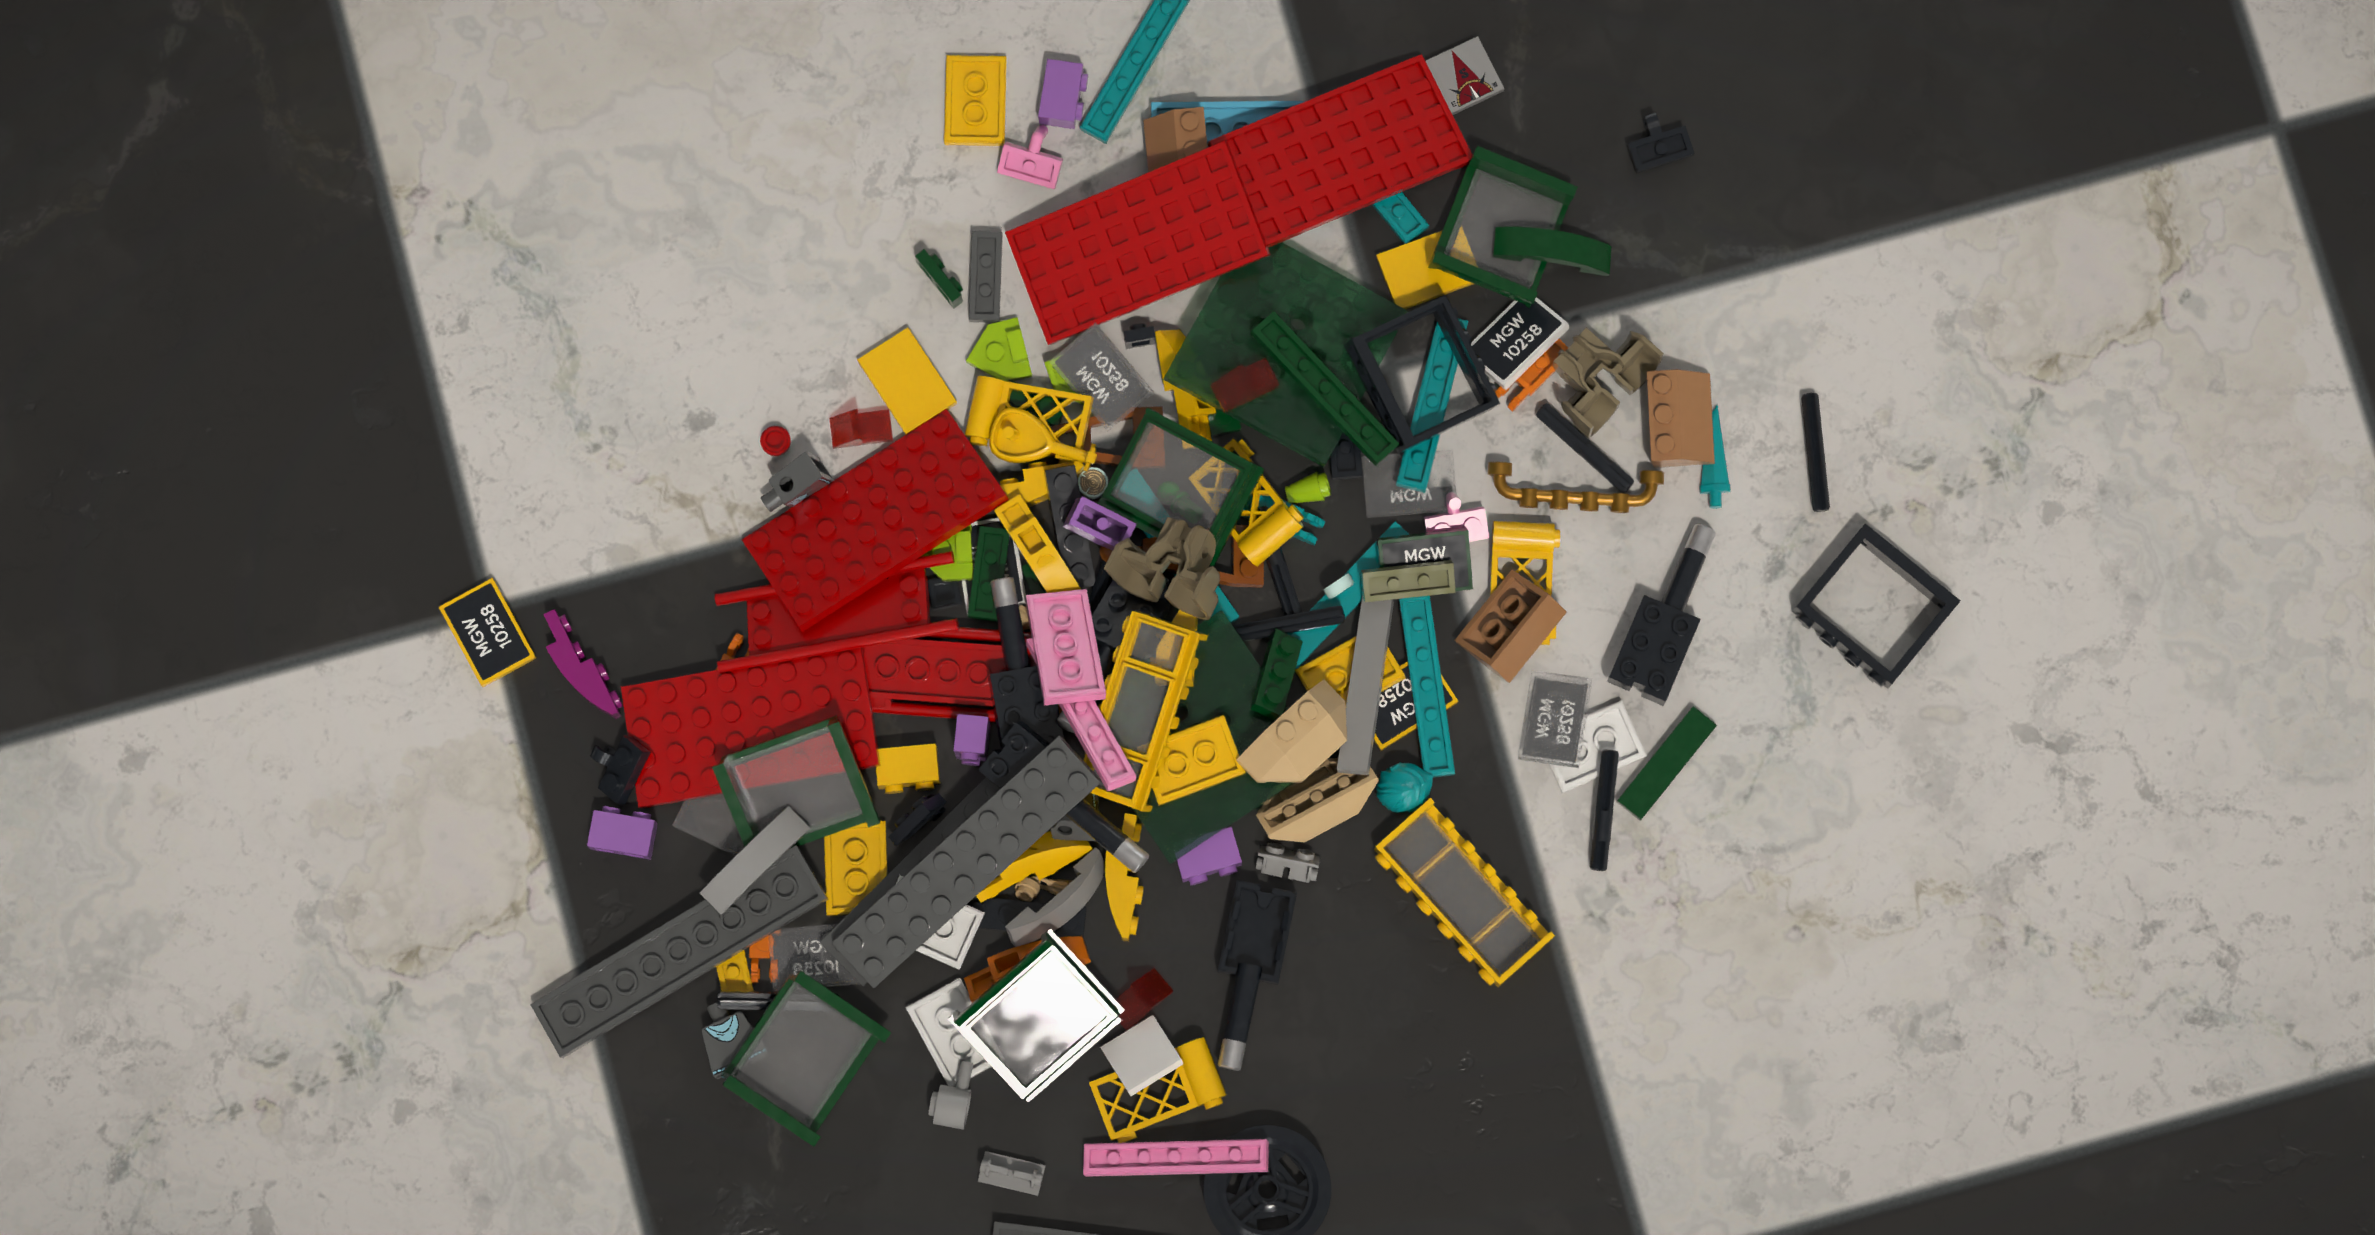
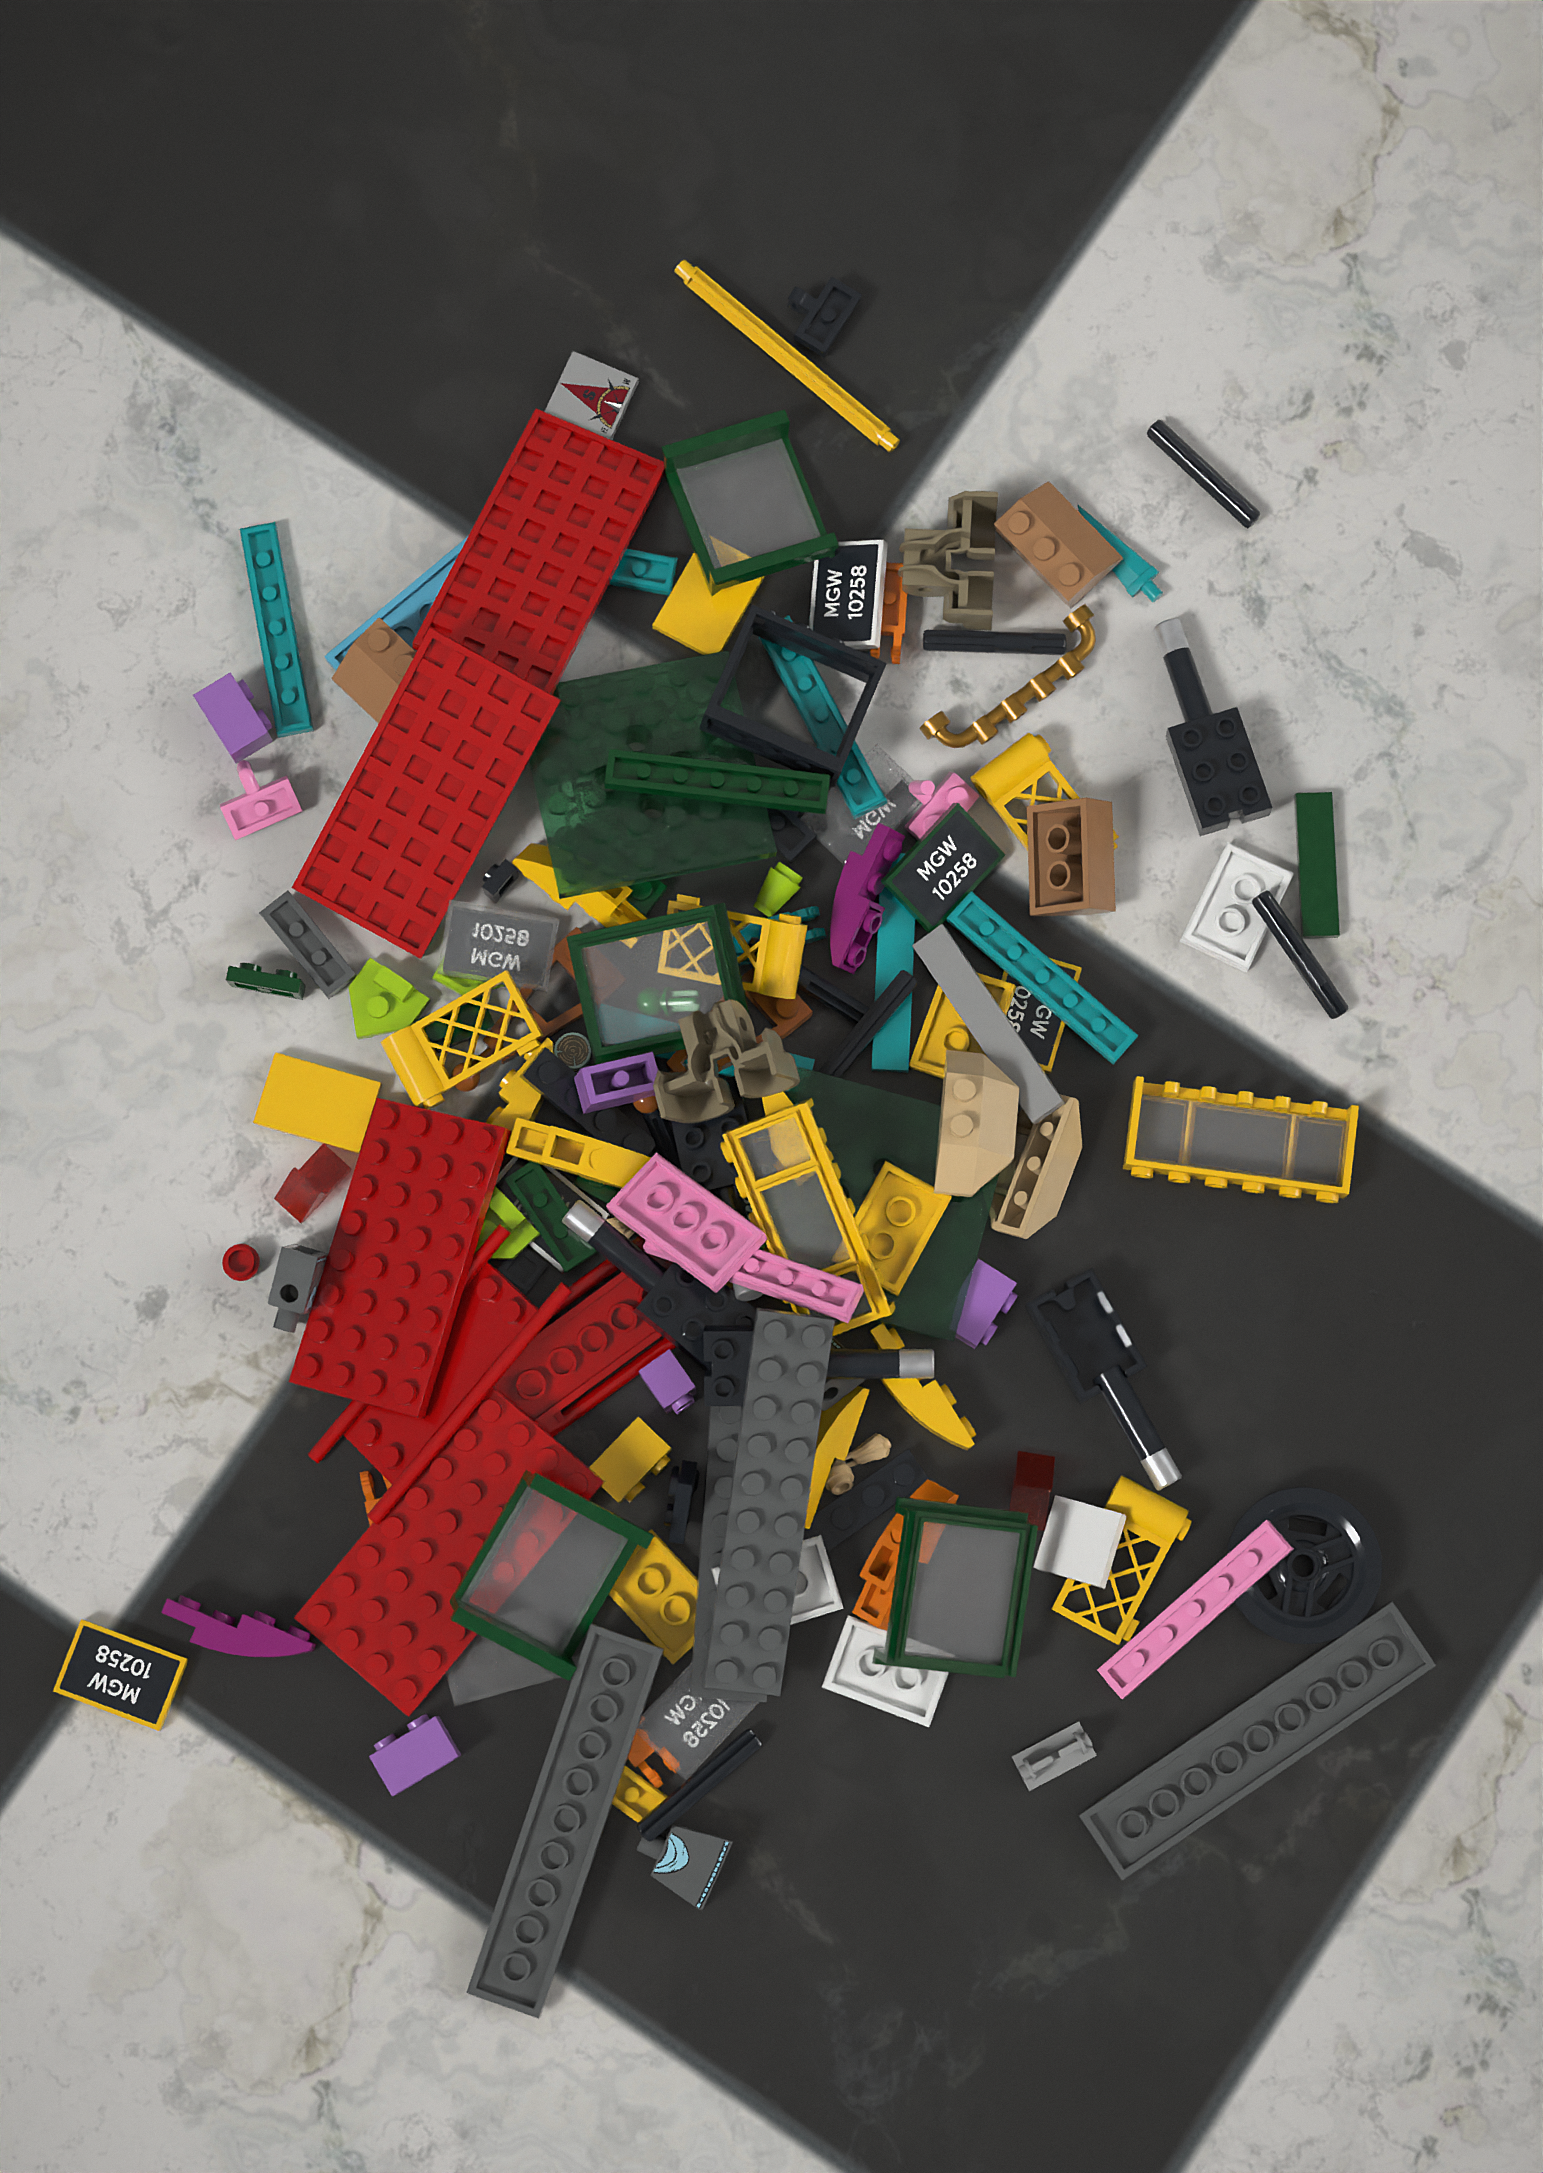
camera: 40 degrees left, 0 degrees up
(623, 767) = (362, 1692): black plate -> none
(754, 860) = (564, 1672): light grey slope -> none
(802, 1055) = (766, 1818): clear piece -> none
(951, 1103) = (943, 1740): light grey piece -> none
(975, 100) = (157, 790): yellow tile -> none
(1022, 438) = (474, 1062): yellow piece -> none
(1065, 905) = (877, 1509): light grey slope -> none
(1244, 384) = (640, 839): clear red slope -> none
(1276, 674) = (900, 1083): dark green plate -> none
(1299, 862) = (1067, 1238): light grey hinge -> none
(1338, 586) = (884, 954): light aqua tile -> none
(1345, 542) = (854, 911): none -> magenta slope
(1403, 787) = (1103, 1088): teal hair -> none
(1408, 581) = (944, 895): olive plate -> none
(1552, 247) = (806, 484): dark green slope -> none
(1555, 719) = (1183, 909): clear tile -> none
(1613, 153) = (787, 356): none -> yellow piece
(1906, 569) = (1378, 510): black window -> none

